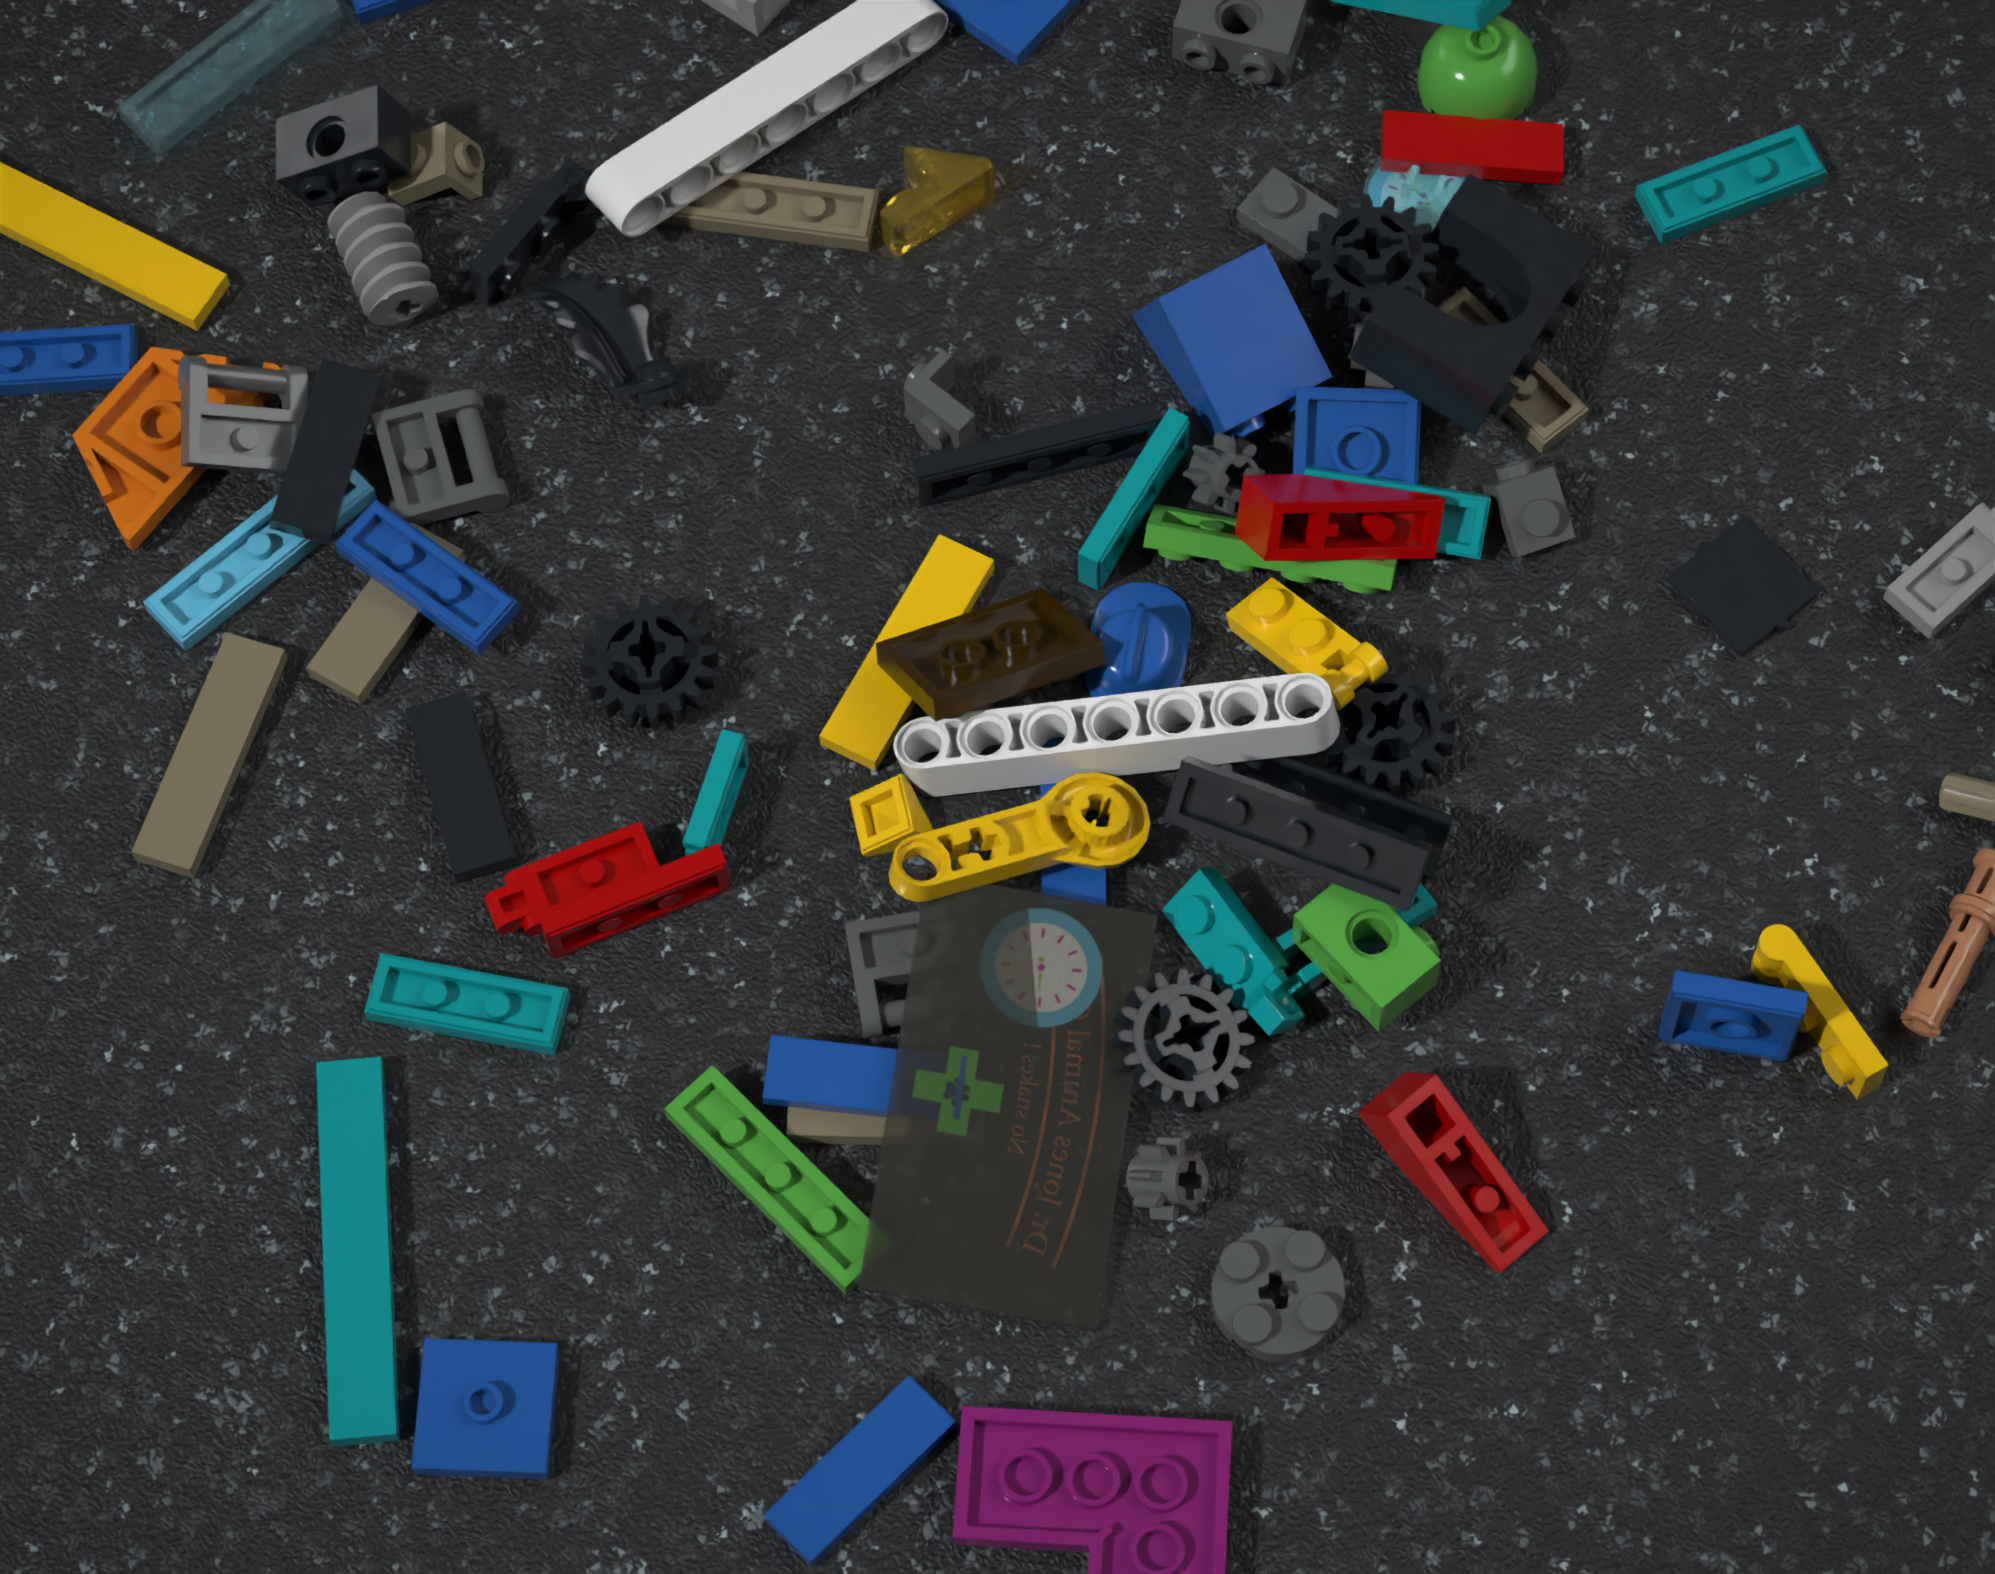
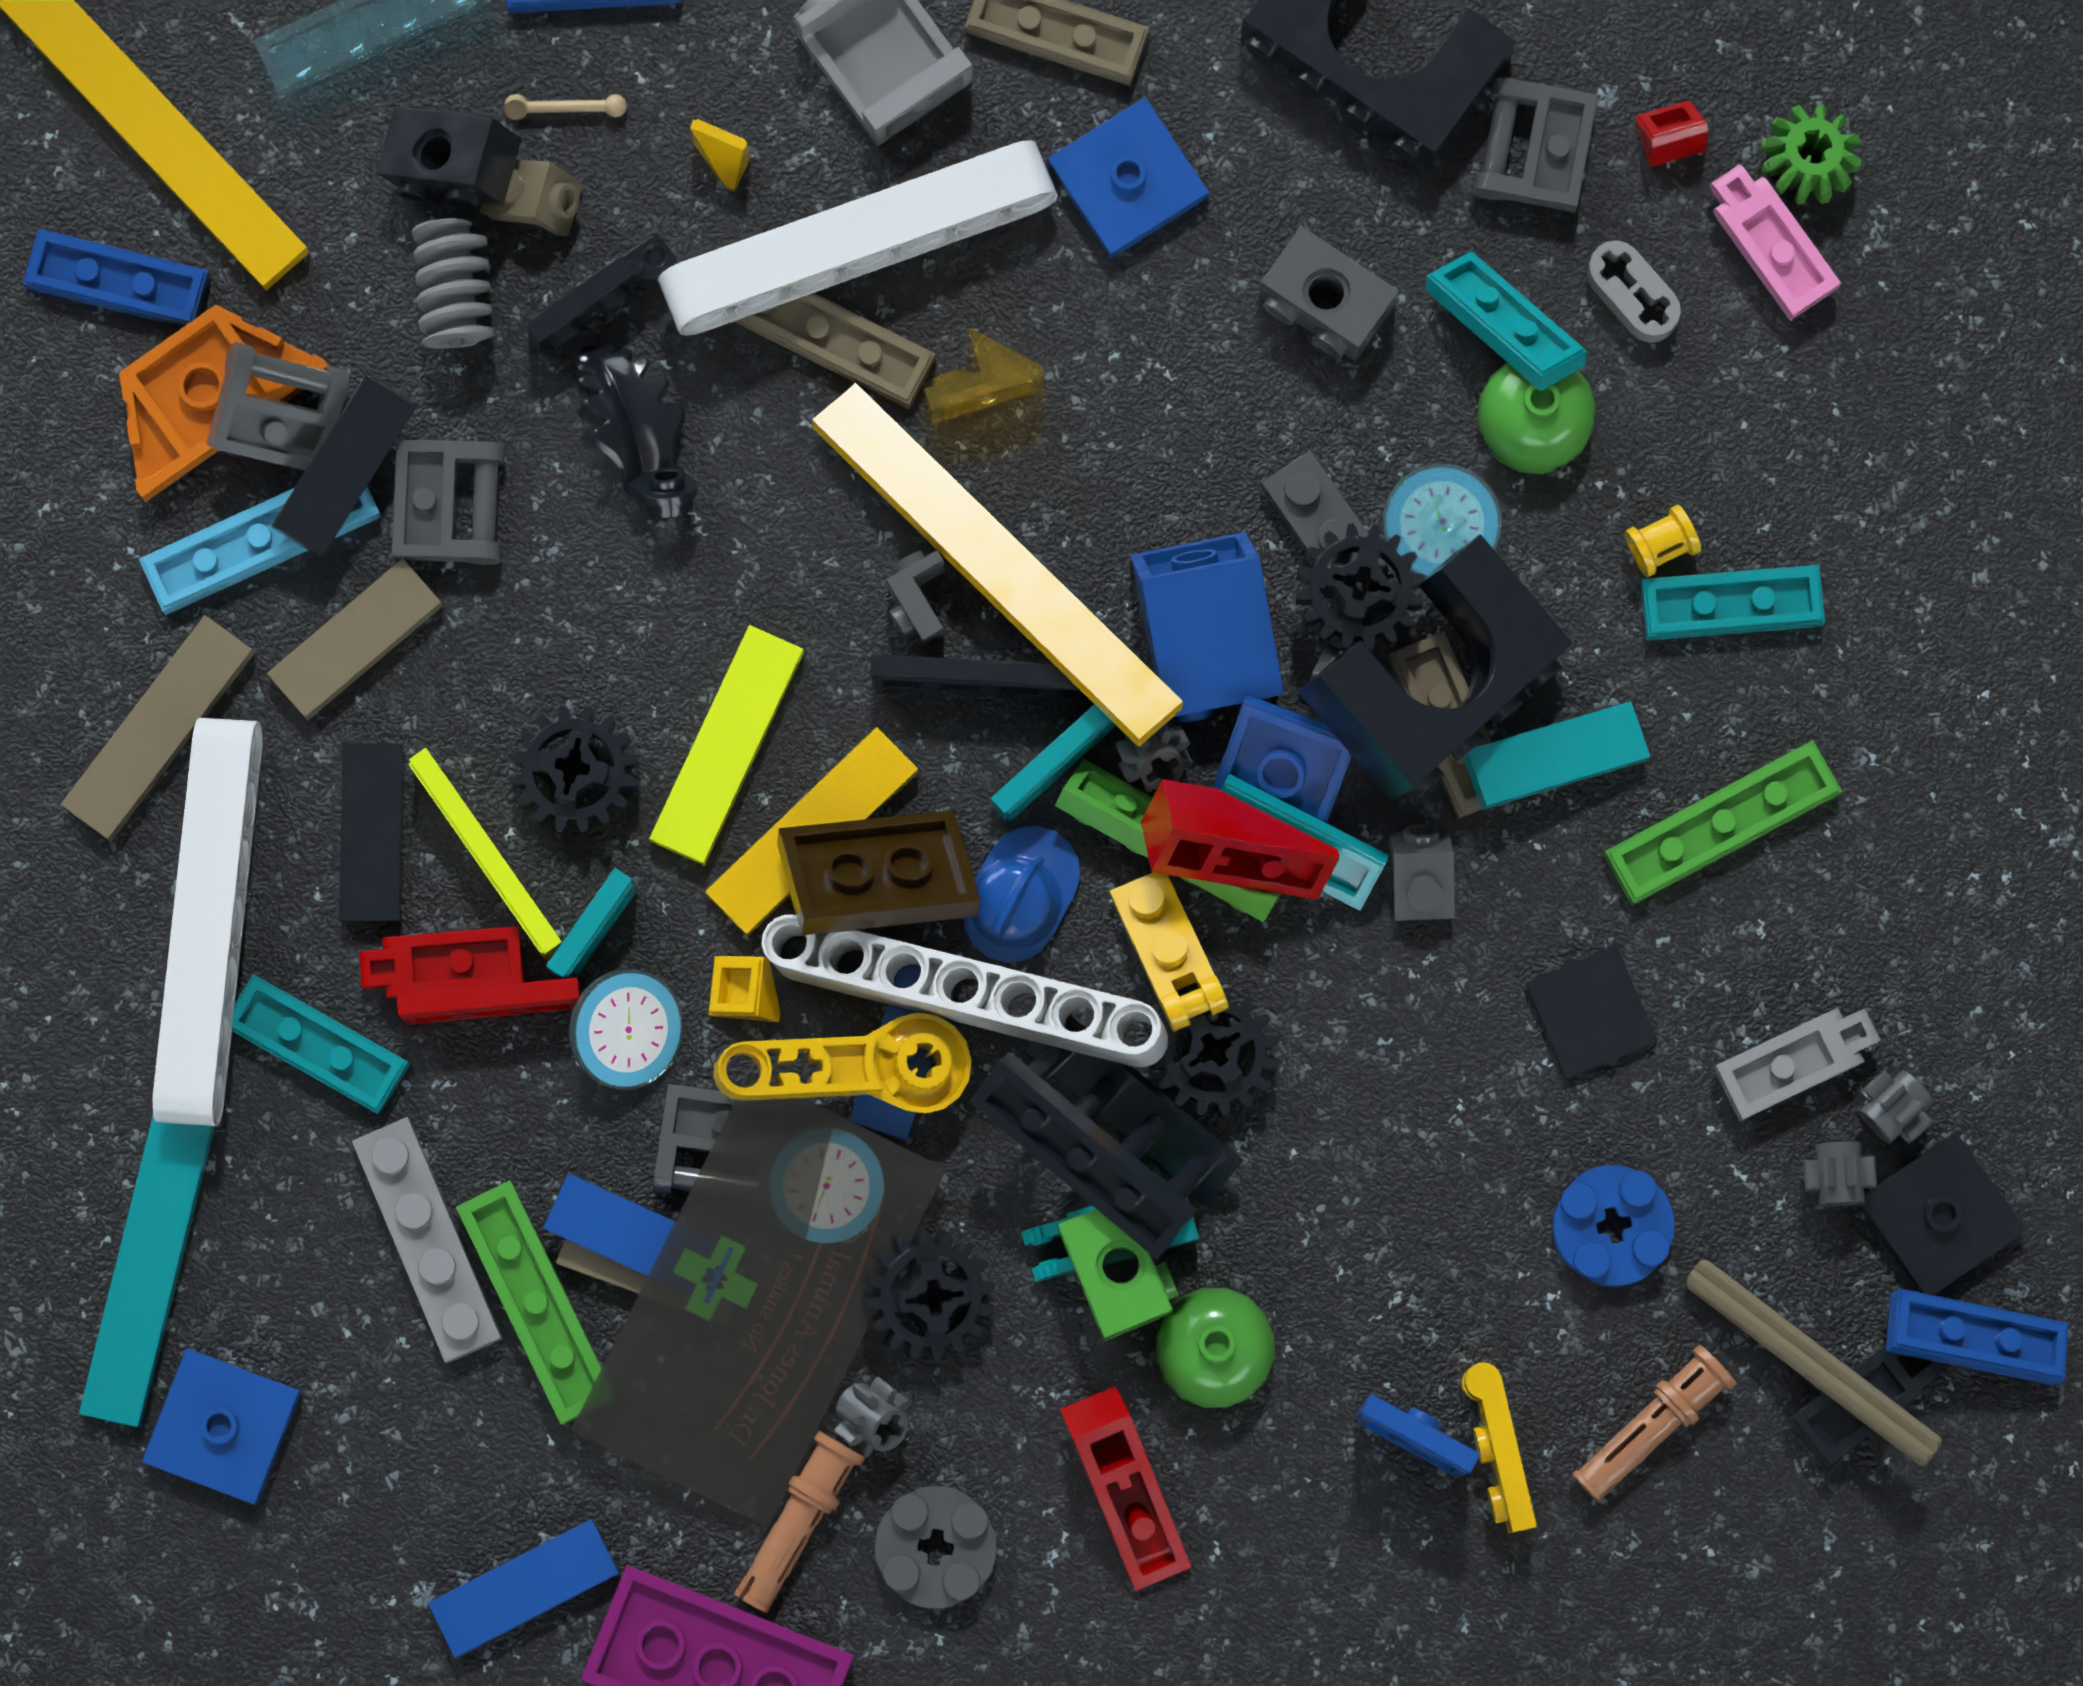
camera: 15 degrees right, 15 degrees up
(319, 914) = (207, 922): none -> white beam
(427, 577) = (399, 622): blue tile -> none
(490, 71) = (517, 106): none -> tan hinge
(584, 764) = (485, 853): none -> neon yellow tile
(607, 74) = (723, 152): none -> yellow slope
(644, 1158) = (427, 1240): none -> light grey plate
(783, 884) = (626, 1029): none -> piece
(794, 599) = (726, 745): none -> neon yellow tile
(1010, 346) = (997, 565): none -> tile
(1131, 1282) = (811, 1497): none -> nougat pin
(1234, 950) = (1004, 1223): teal hinge -> none
(1472, 145) = (1502, 489): red tile -> none
(1492, 1008) = (1215, 1347): none -> bright green cylinder
(1616, 361) = (1556, 755): none -> teal tile
(1643, 145) = (1662, 540): none -> yellow bush
(1800, 378) = (1722, 823): none -> bright green tile
(1837, 805) = (1593, 1254): none -> blue plate

